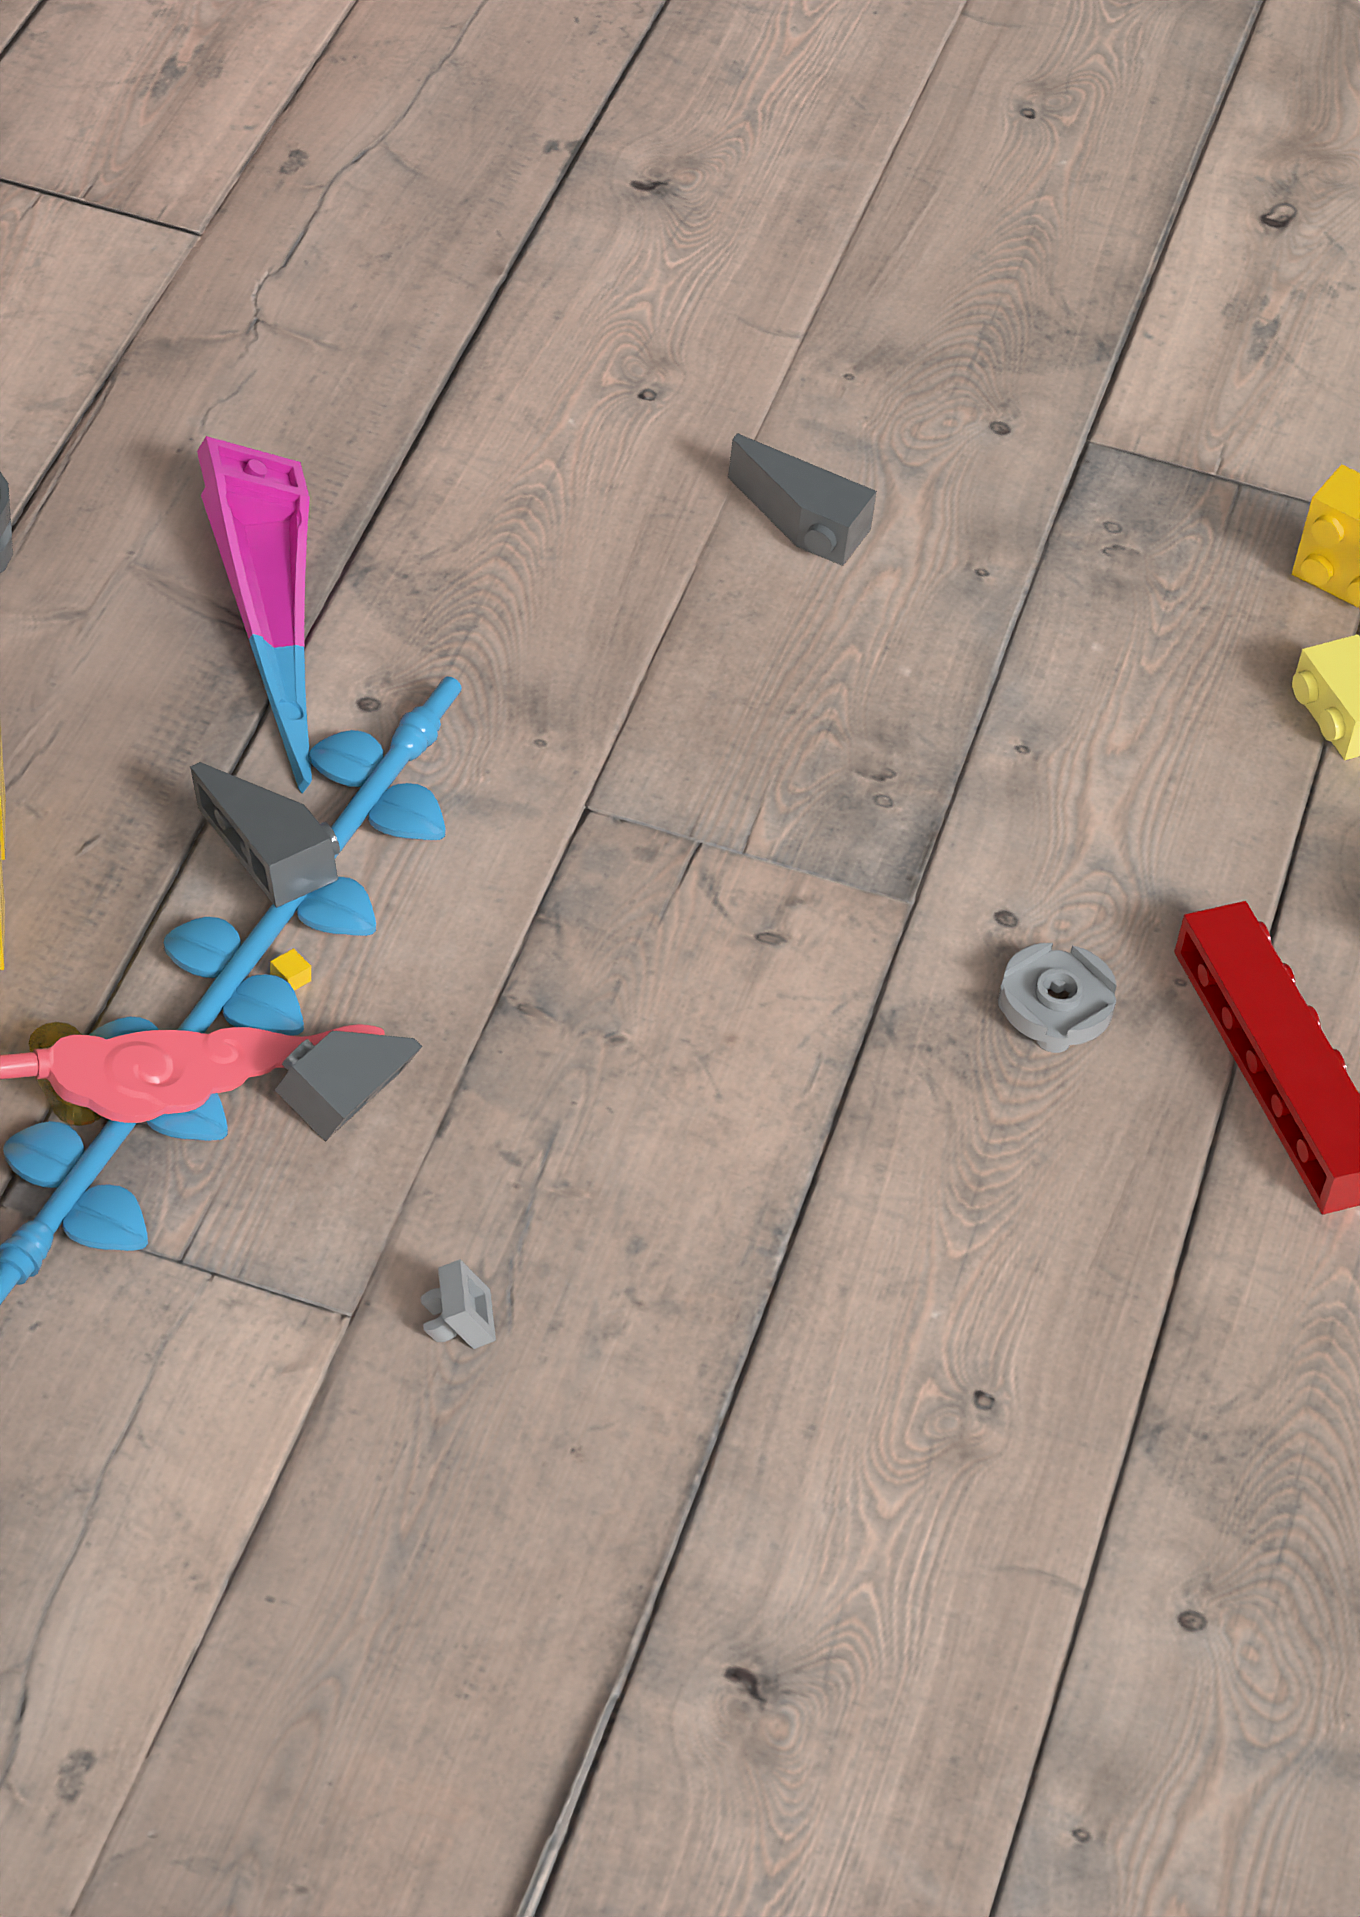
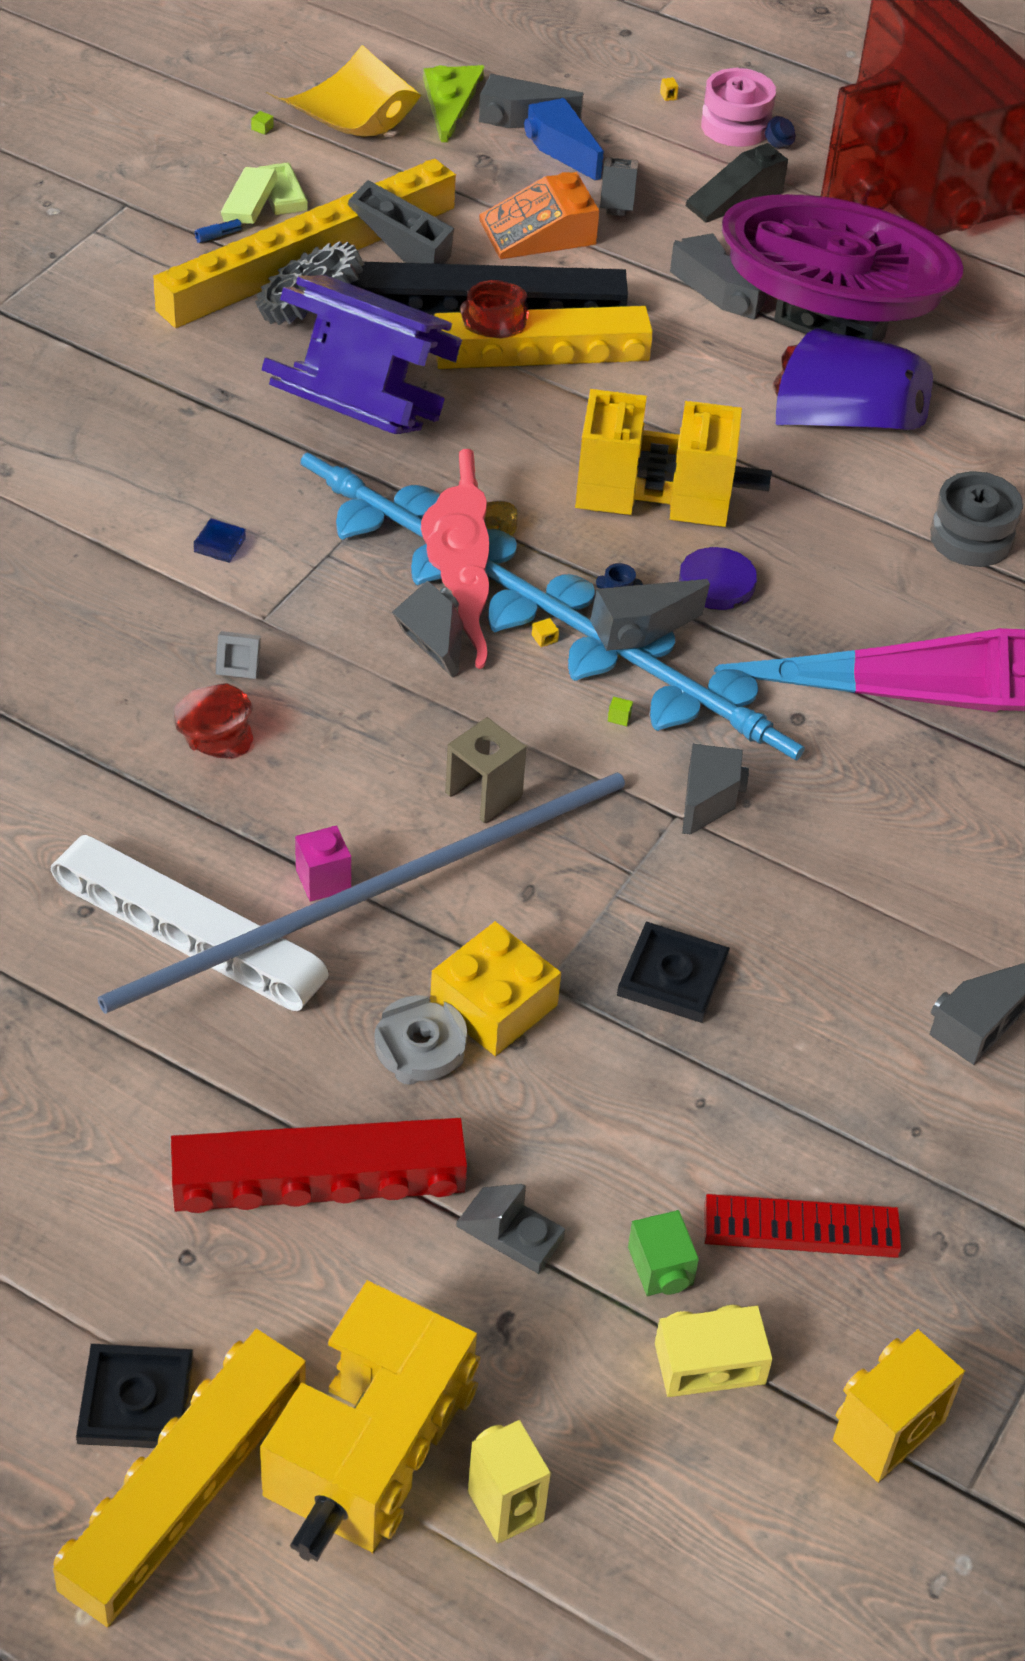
camera: 105 degrees right, 0 degrees up
(122, 795) = (728, 572): none -> dark purple tile
(165, 897) = (618, 576): none -> dark blue plate
(193, 1400) = (219, 540): none -> clear blue tile
(426, 872) = (620, 711): none -> lime piece
(551, 762) = (712, 785): none -> dark grey slope
(605, 1303) = (215, 720): none -> clear red hat
(614, 962) = (501, 771): none -> dark tan piece
(833, 1127) = (323, 863): none -> dark pink brick
(850, 782) = (673, 972): none -> black tile
(883, 1066) = (356, 894): none -> sand blue piece
(963, 925) = (496, 987): none -> yellow brick
(977, 1266) = (186, 920): none -> white beam
(1156, 650) = (801, 1225): none -> red tile
(1254, 745) = (663, 1253): none -> bright green brick
(1273, 880) = (509, 1226): none -> dark grey slope

